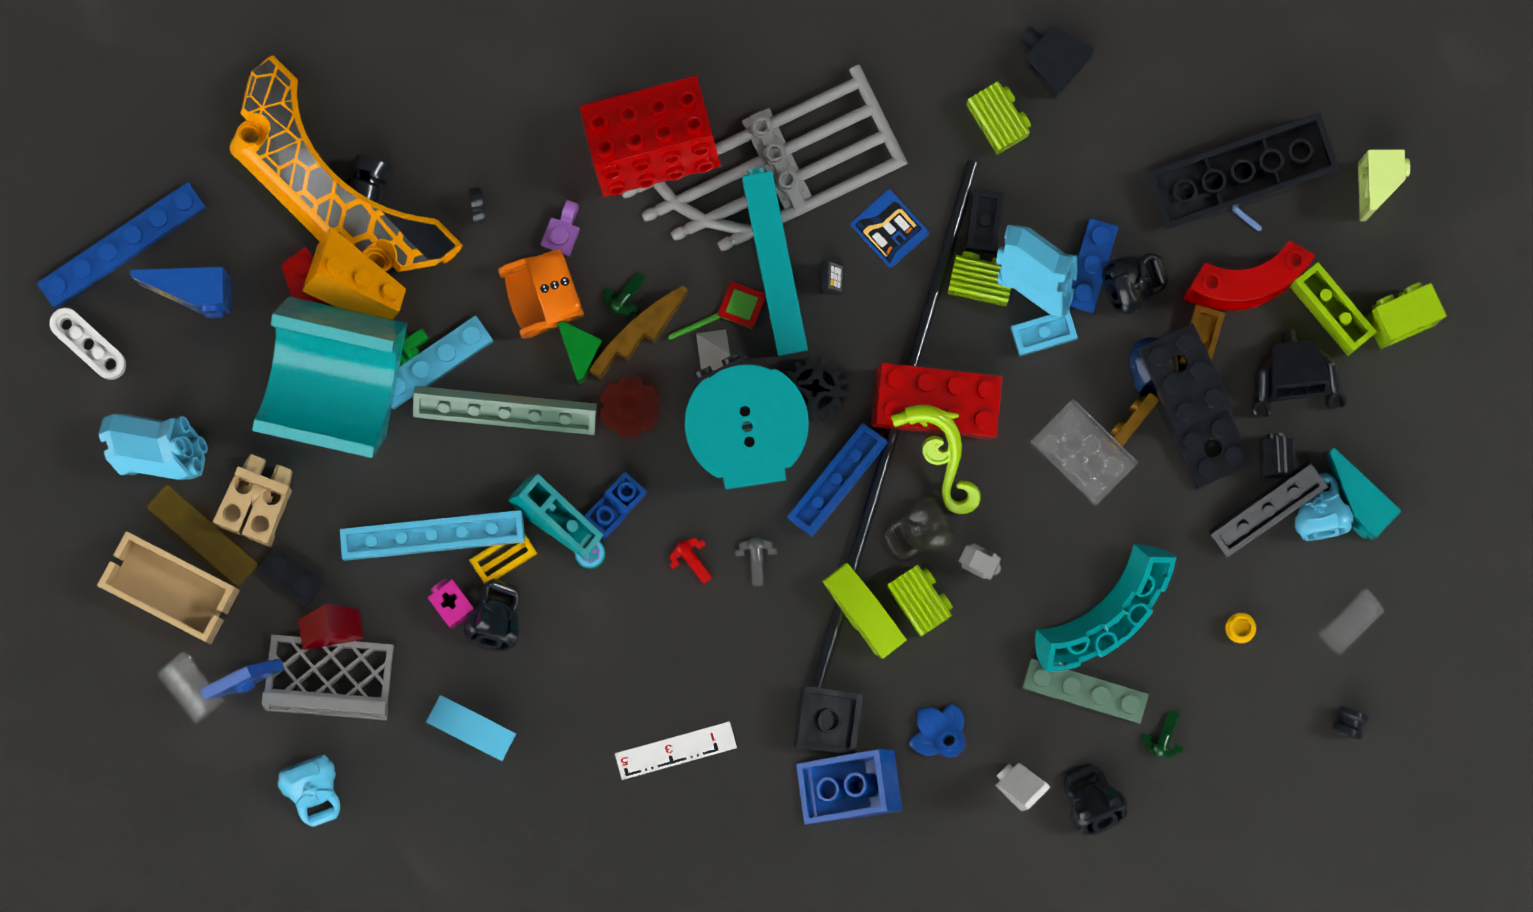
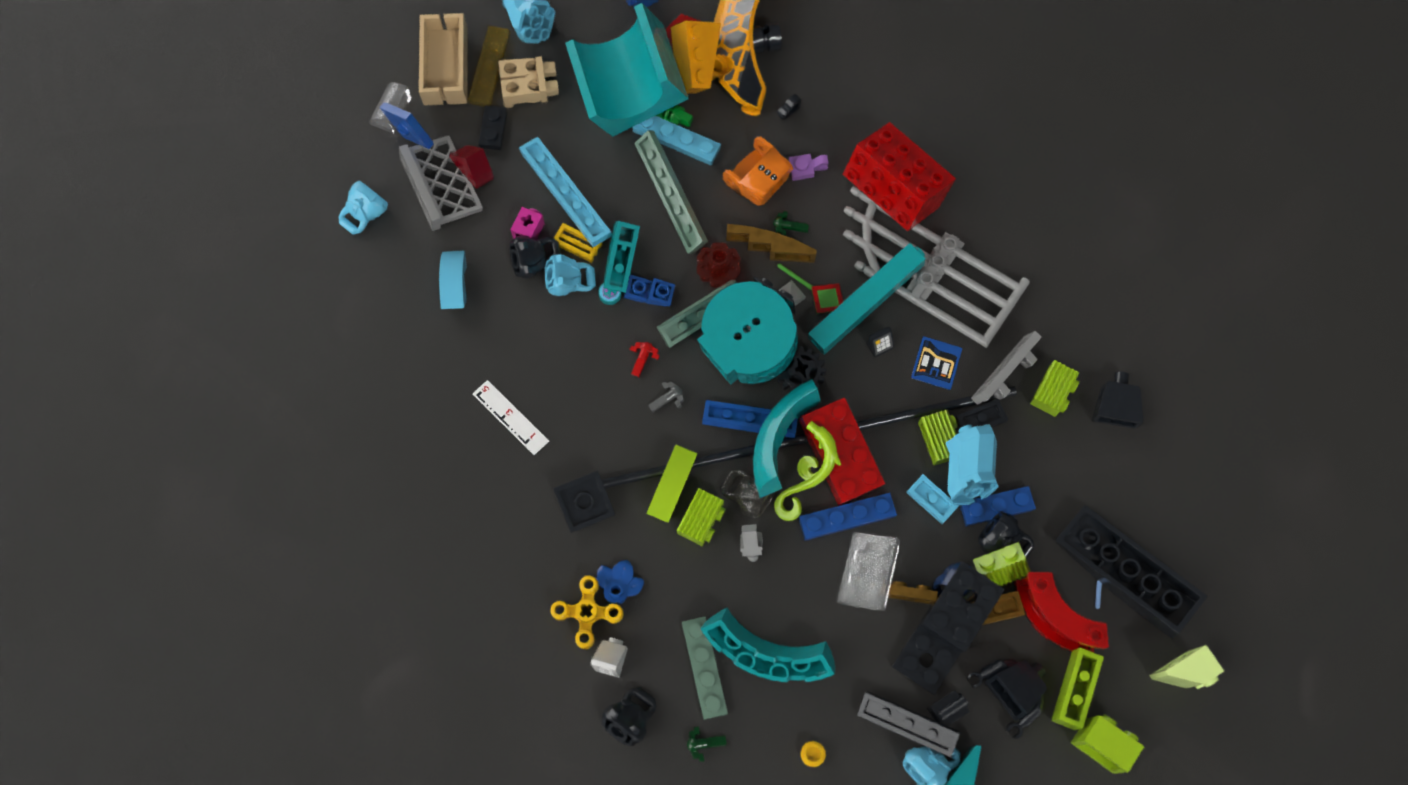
camera: 60 degrees right, 10 degrees down
(542, 595) = (564, 275): none -> medium azure piece
(581, 349) = (736, 213): green slope -> none
(678, 465) = (687, 320): none -> sand green plate
(849, 786) = (547, 542): blue slope -> none
(873, 464) = (773, 432): none -> teal brick
(937, 136) = (995, 383): none -> light grey hinge
(947, 797) = (586, 623): none -> yellow gear
(1011, 432) = (847, 516): none -> blue plate
(1162, 305) = (1003, 564): none -> lime brick

